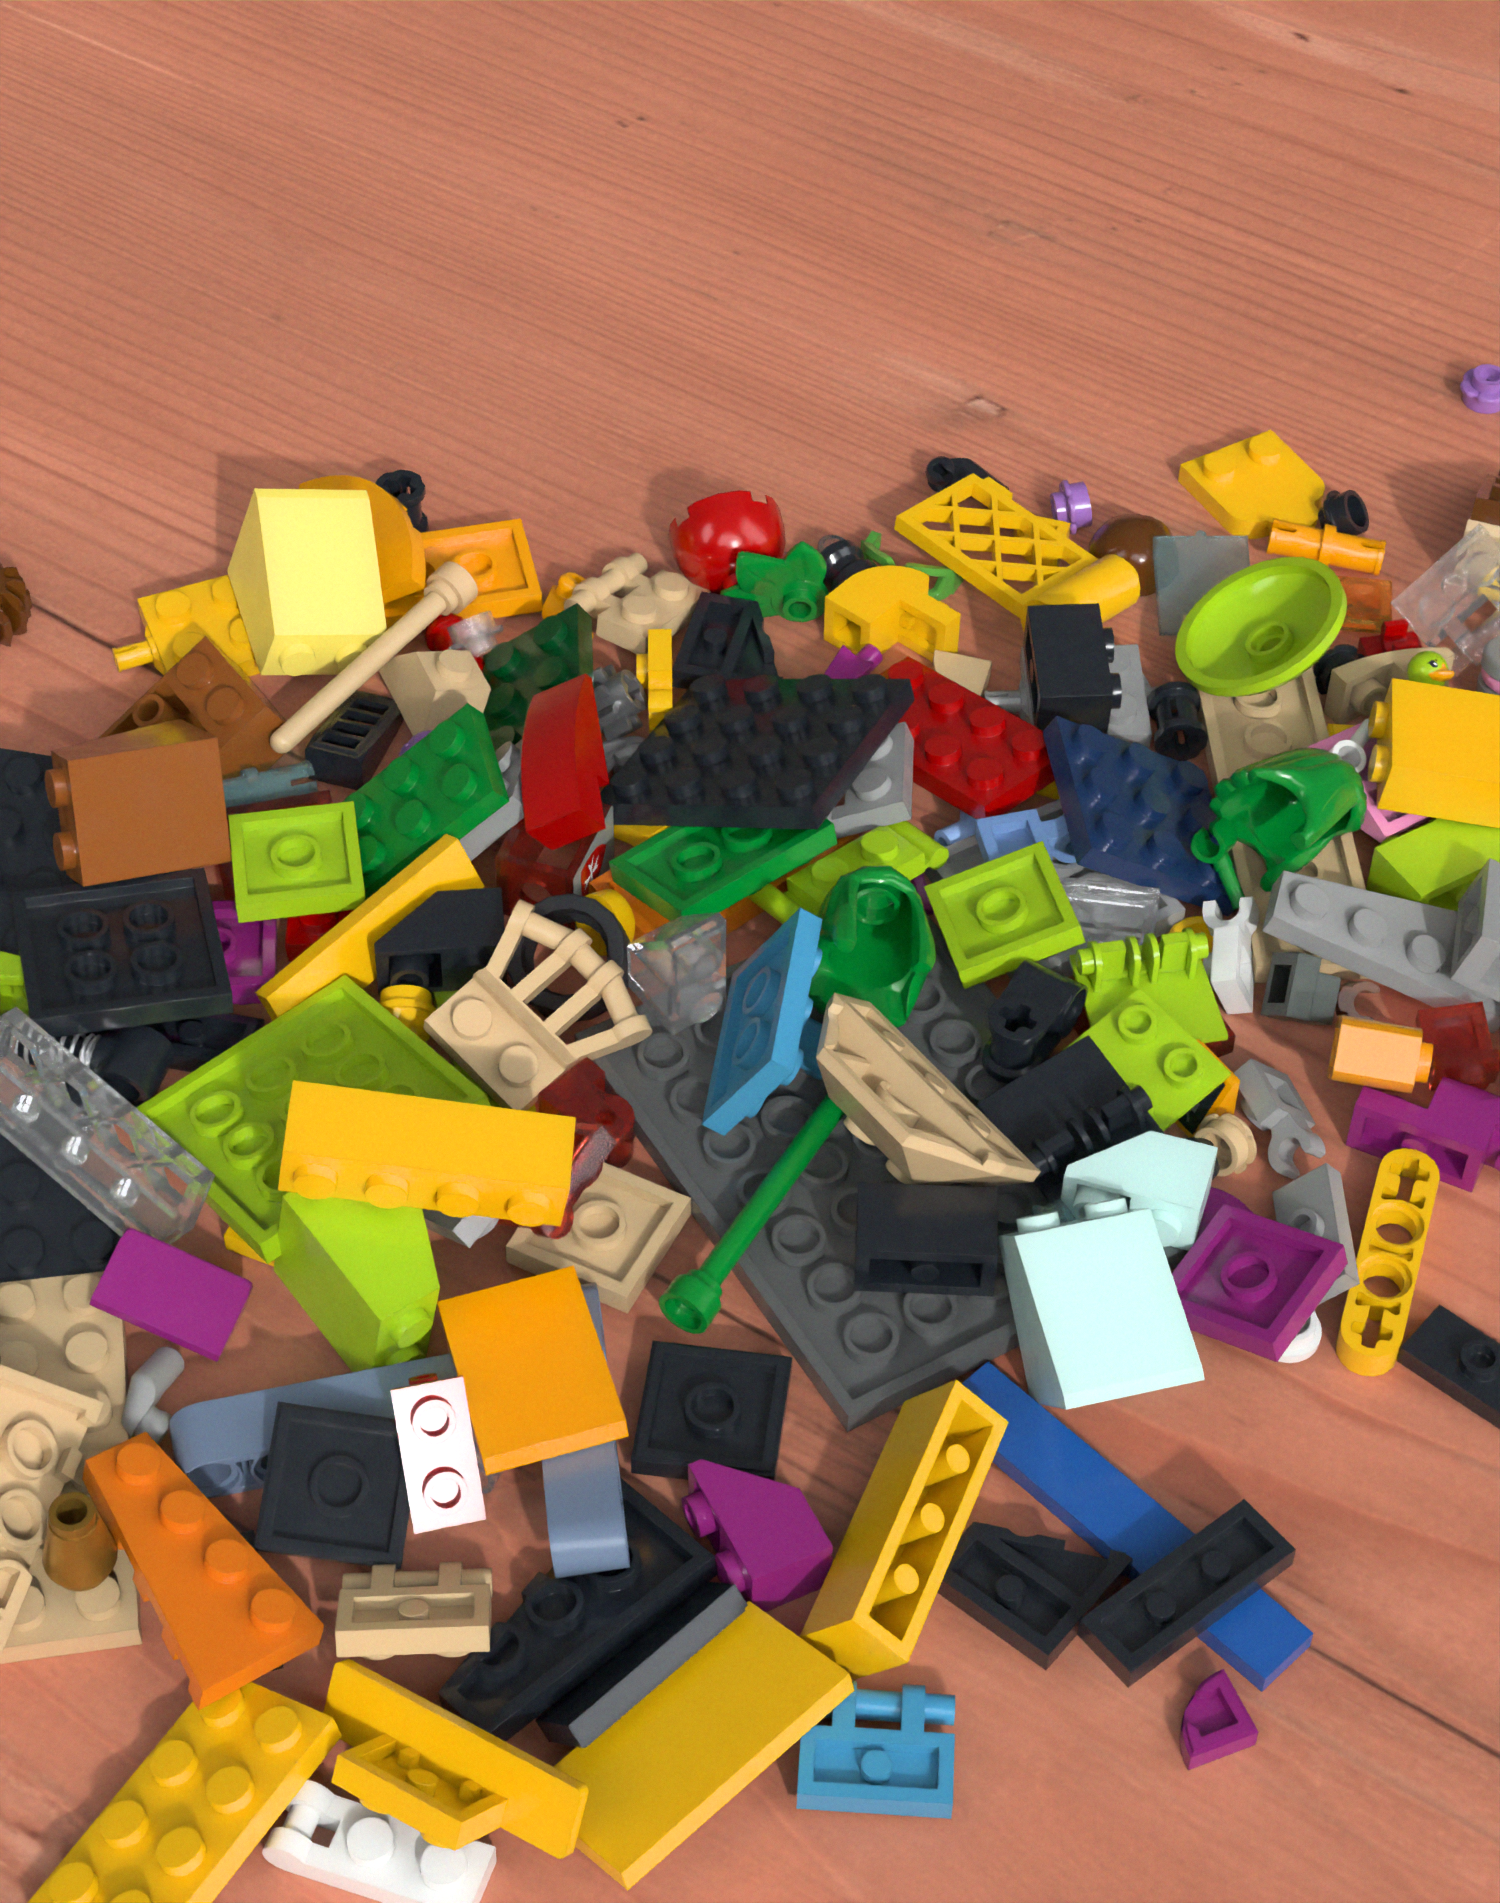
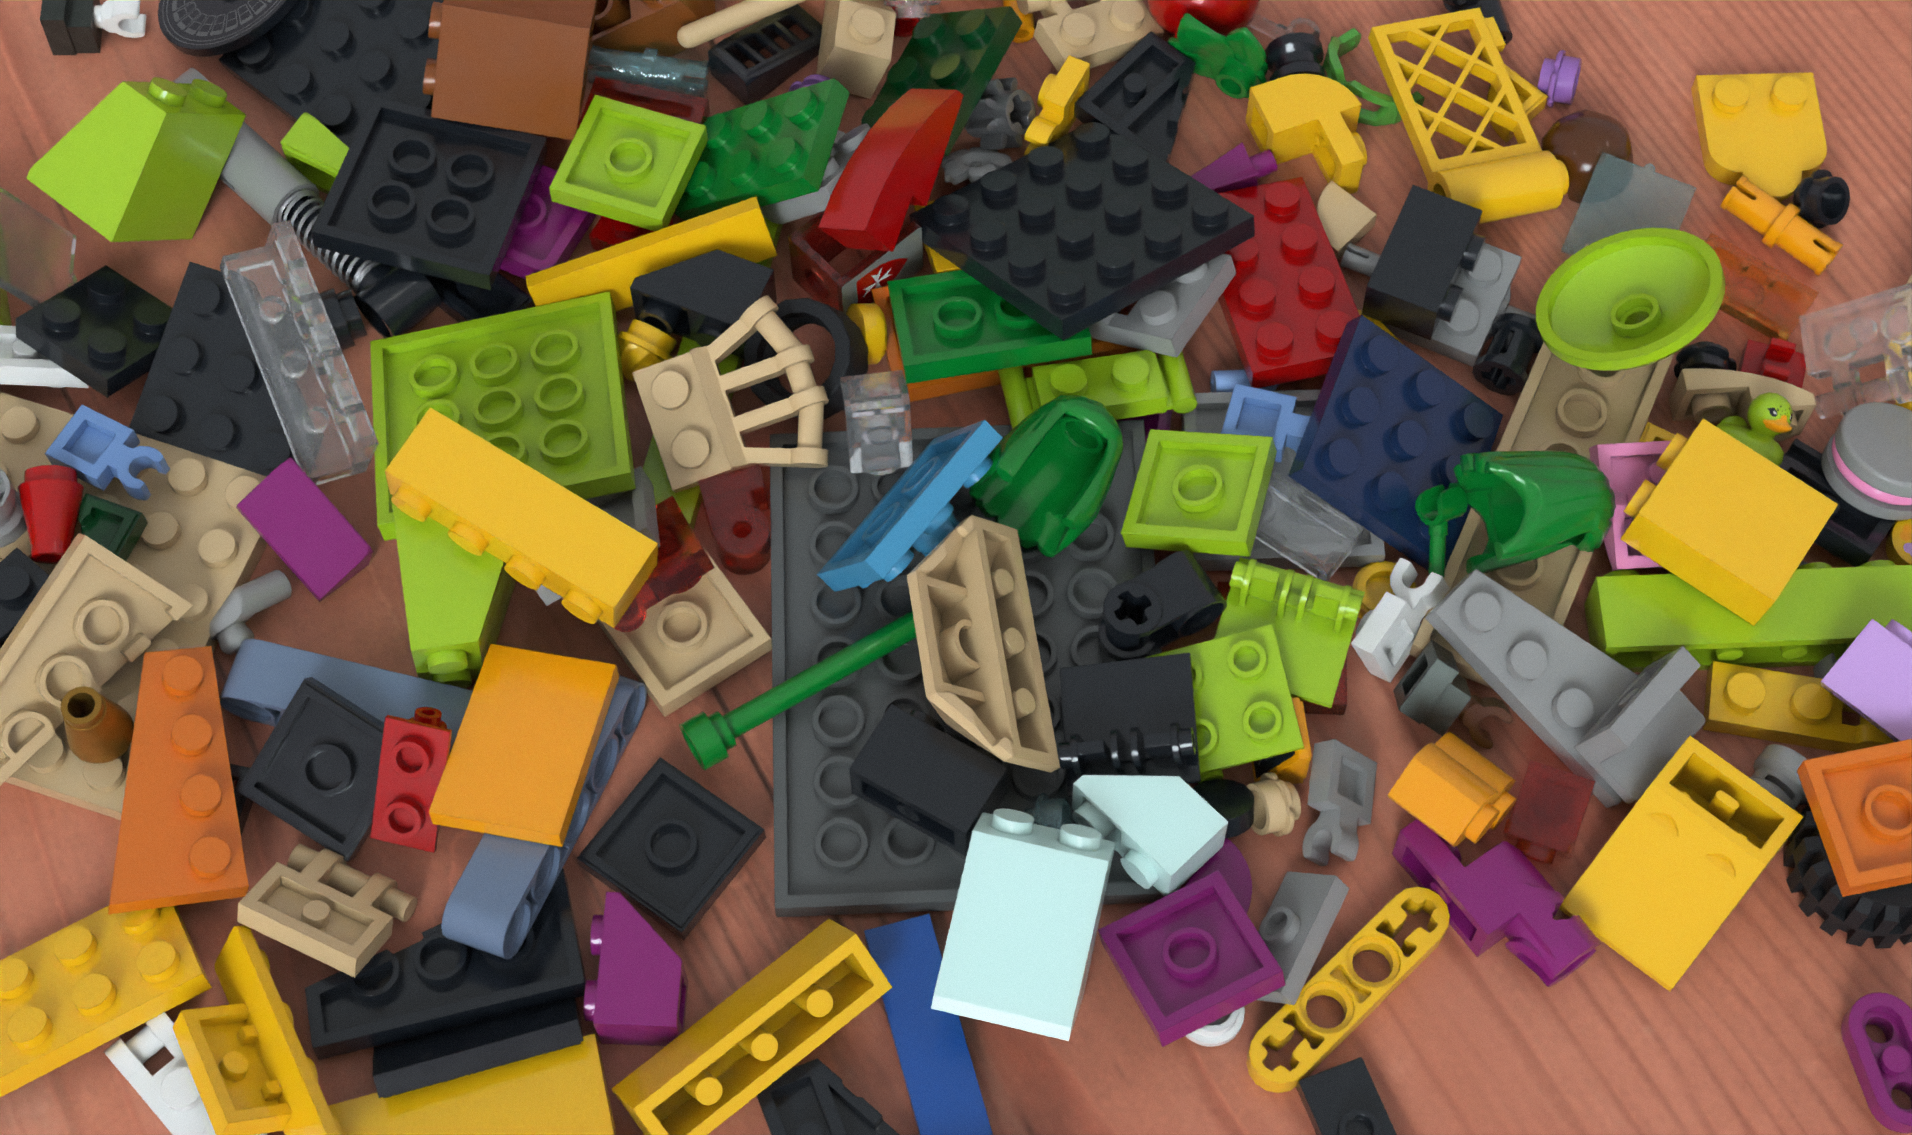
camera: 30 degrees right, 15 degrees up
(1352, 749) = (1634, 468): white hand -> none

